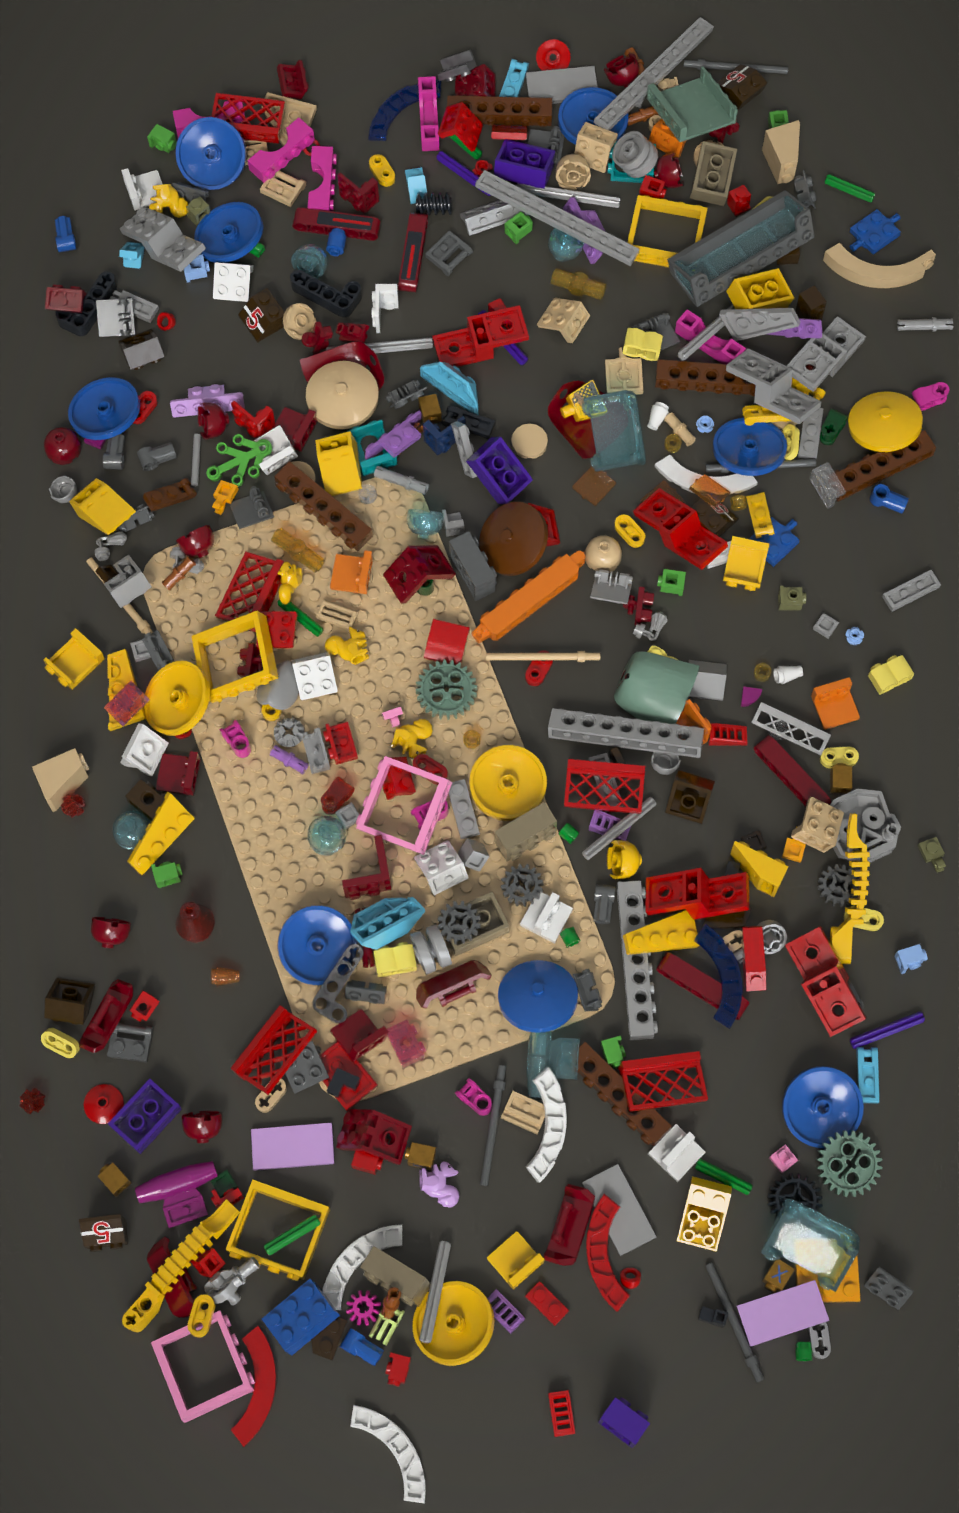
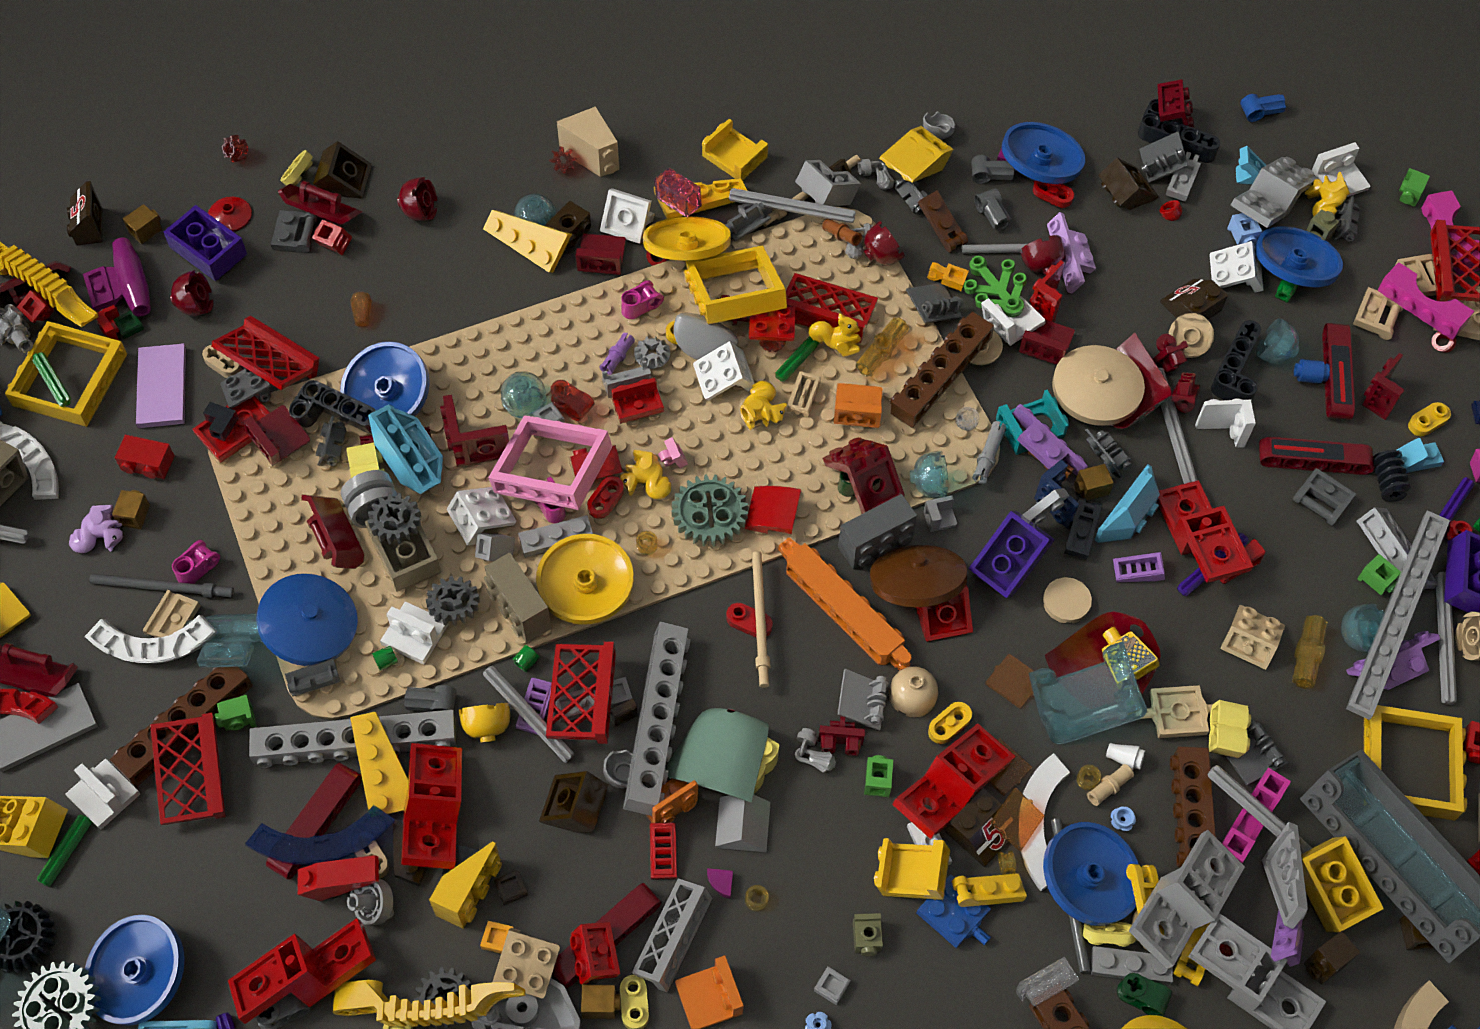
camera: 85 degrees right, 10 degrees down
(62, 445) = (994, 121): dark red cylinder -> none
(148, 610) = (793, 205): none -> light grey axle
(166, 874) = (482, 247): bright green brick -> none
(194, 922) = (425, 273): clear red cone -> none
(211, 153) = (1402, 229): blue dish -> none
(322, 163) = (1369, 352): dark pink arch -> none
(339, 463) = (1001, 382): yellow slope -> none
(367, 1130) = (159, 447): dark red bracket -> none
(406, 1055) = (262, 483): clear pink brick -> none
(504, 374) = (1138, 560): none -> medium lavender slope
(783, 1159) = (78, 925): bright pink tile -> none
(784, 674) = (754, 930): white cone -> none
(812, 776) = (594, 952): none -> red bracket

